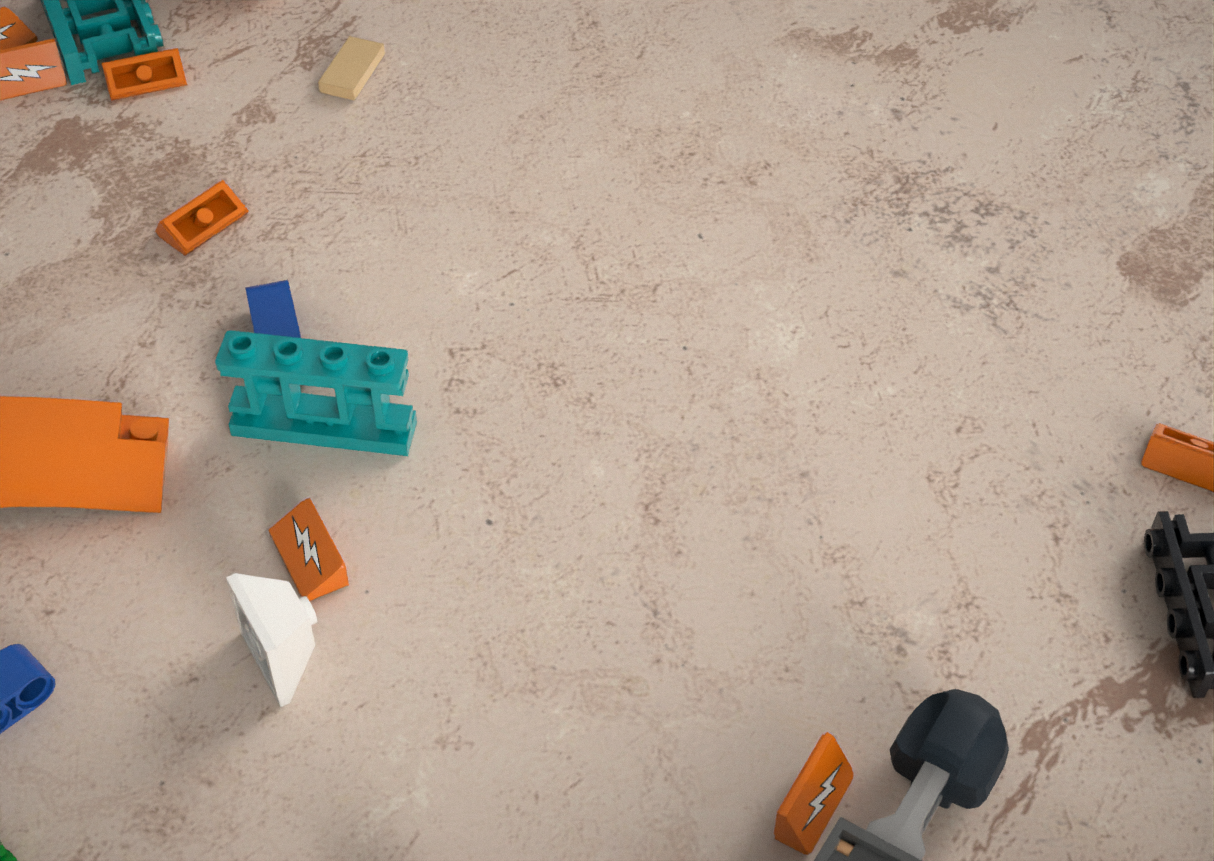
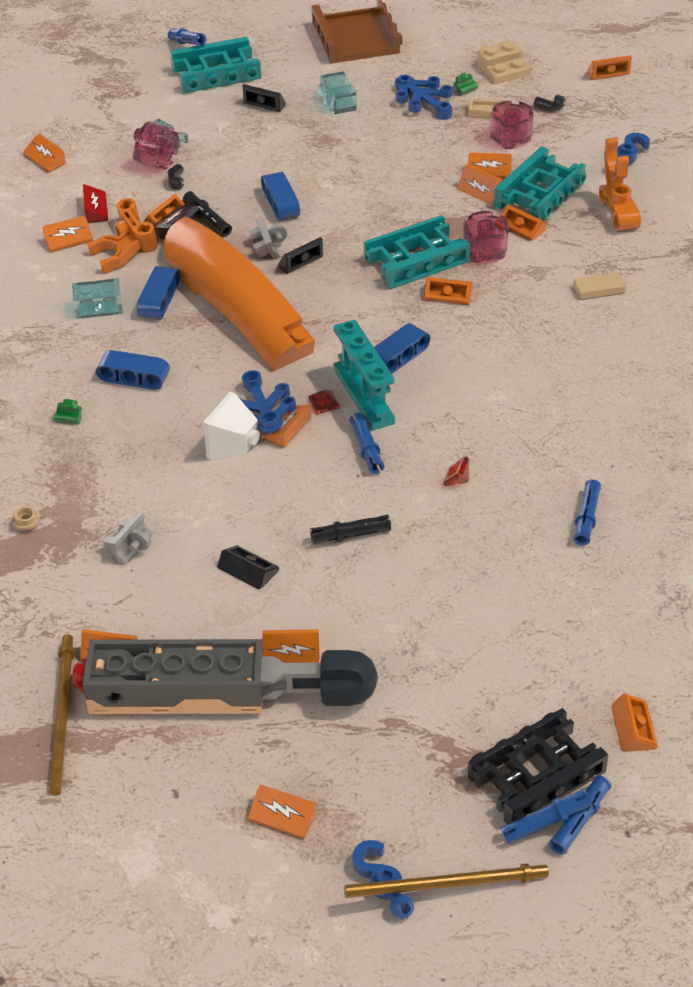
camera: 60 degrees right, 5 degrees down
(91, 180) = (419, 264): none -> teal fence
(146, 117) = (486, 236): none -> clear pink brick
(245, 561) = (269, 420): none -> blue plant
(294, 481) = (323, 401): none -> clear red slope
(459, 476) = (368, 448): none -> blue pin
(582, 770) = (247, 566): none -> black slope
(591, 398) = (457, 472): none -> clear red slope
(606, 601) = (340, 531): none -> black pin
(793, 309) = (586, 519): none -> blue pin

